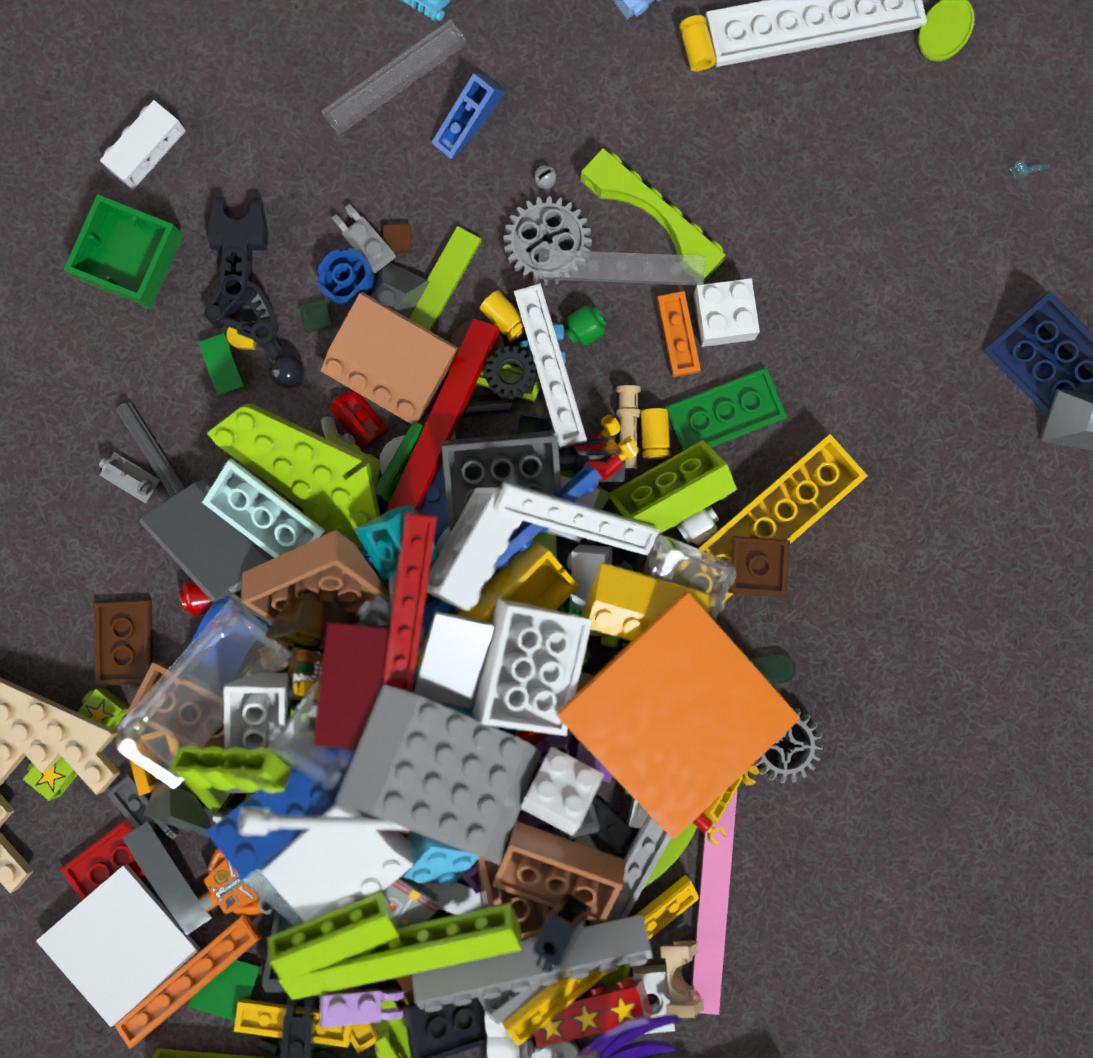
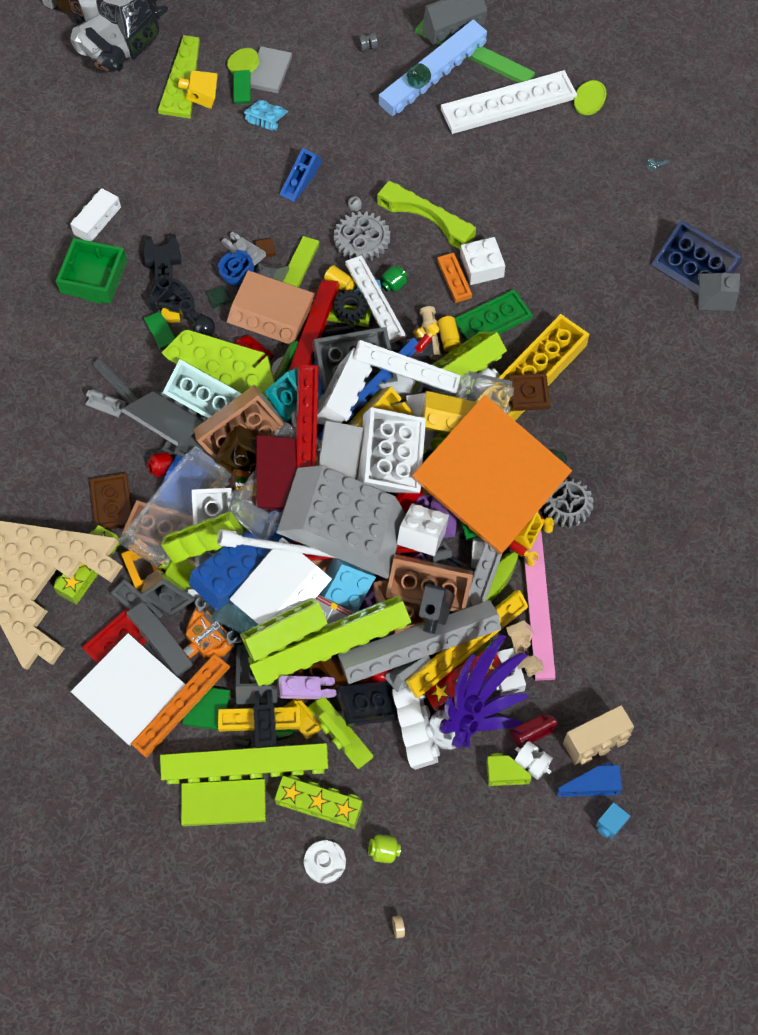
camera: 10 degrees left, 20 degrees down
(394, 77) = (250, 162): clear tile -> none
(621, 267) = (411, 241): clear tile -> none
(697, 43) = (438, 121): yellow piece -> none

